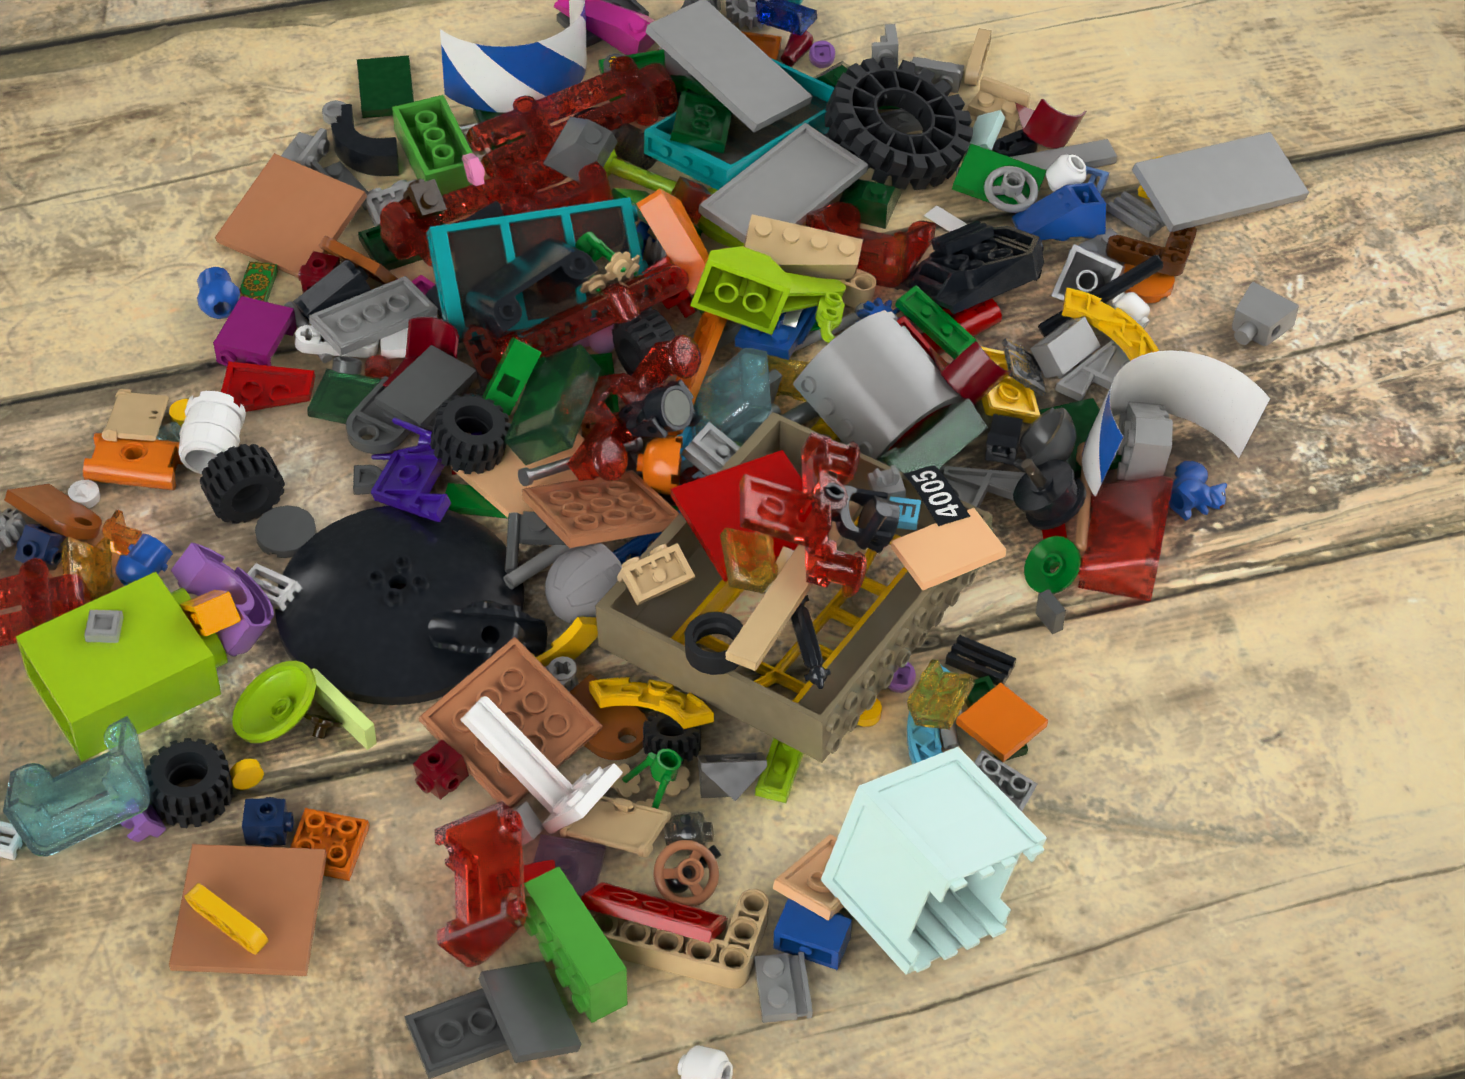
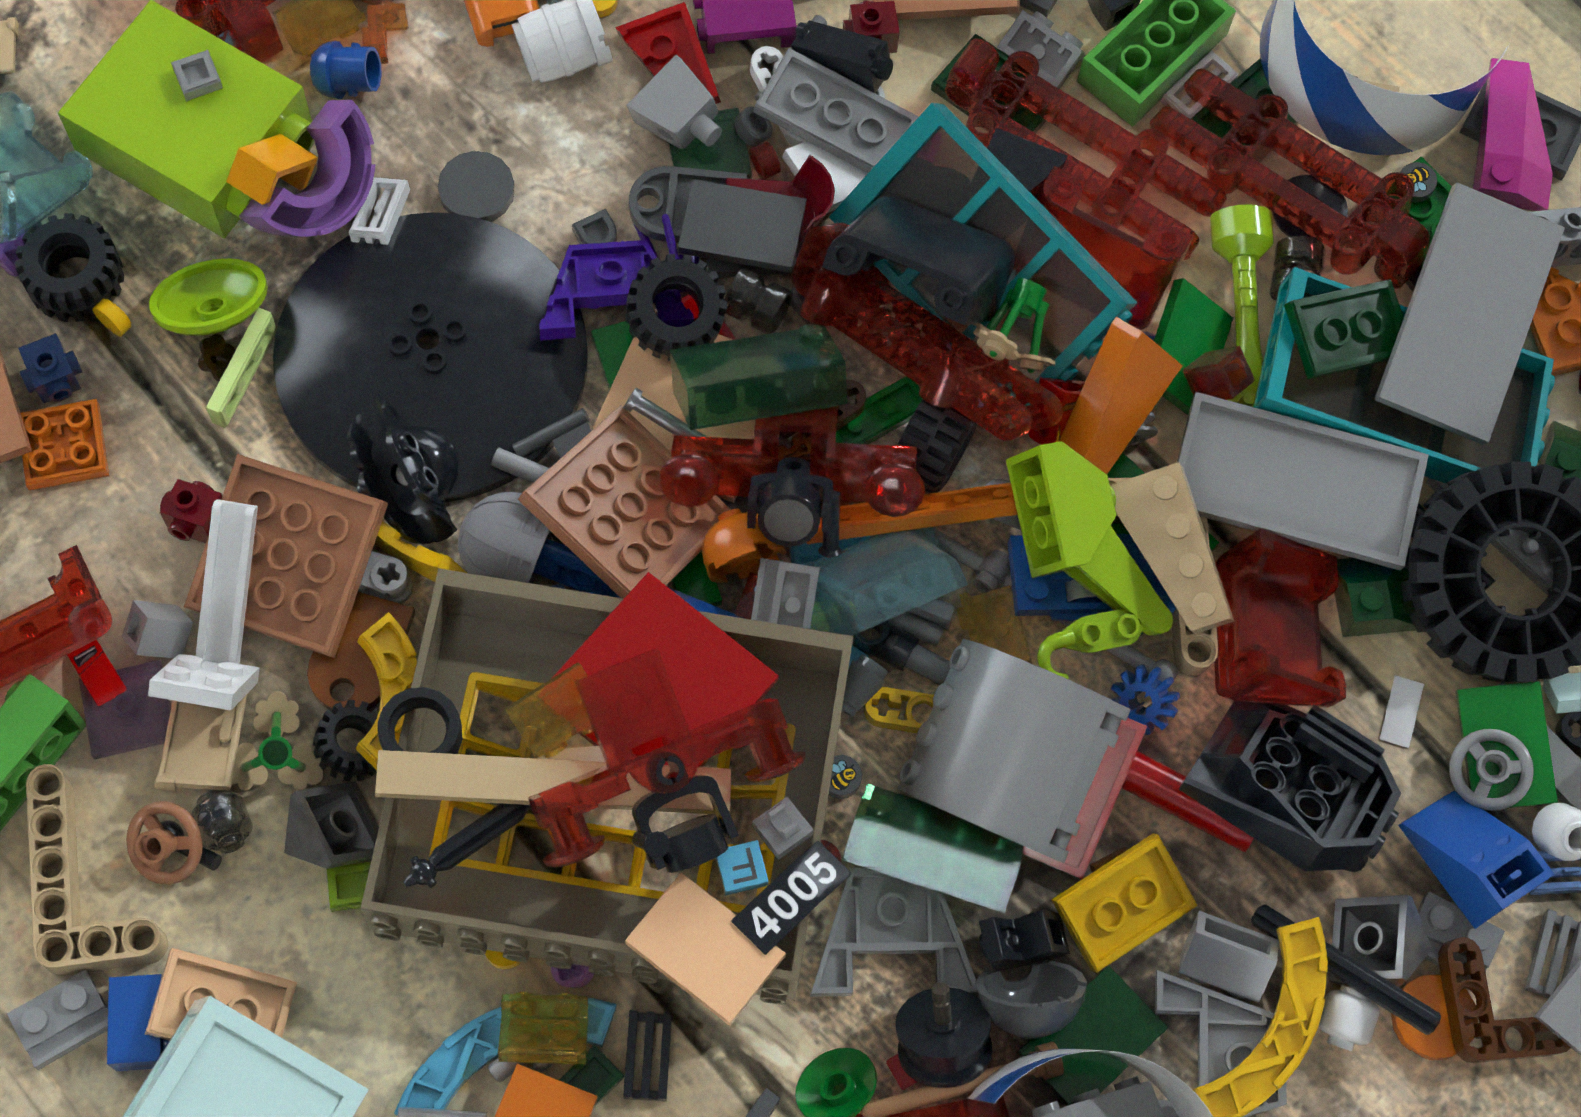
camera: 60 degrees right, 20 degrees up
(242, 483) = (494, 107): black tyre -> none
(311, 390) = (676, 107): none -> light grey torso
(371, 267) = (909, 56): dark orange tile -> none
(425, 198) = (1033, 76): dark brown bracket -> none
(474, 169) = (1120, 105): bright pink tile -> none
(511, 374) = (778, 308): green brick -> none
(580, 145) = (1223, 211): dark grey slope -> none
(655, 574) = (502, 613): tan bracket -> none
(655, 912) = (85, 832): red tile -> none
(935, 322) = (1167, 769): green tile -> none
(971, 373) = (1078, 840): dark red piece -> none
(1024, 367) = (1164, 915): piece -> none

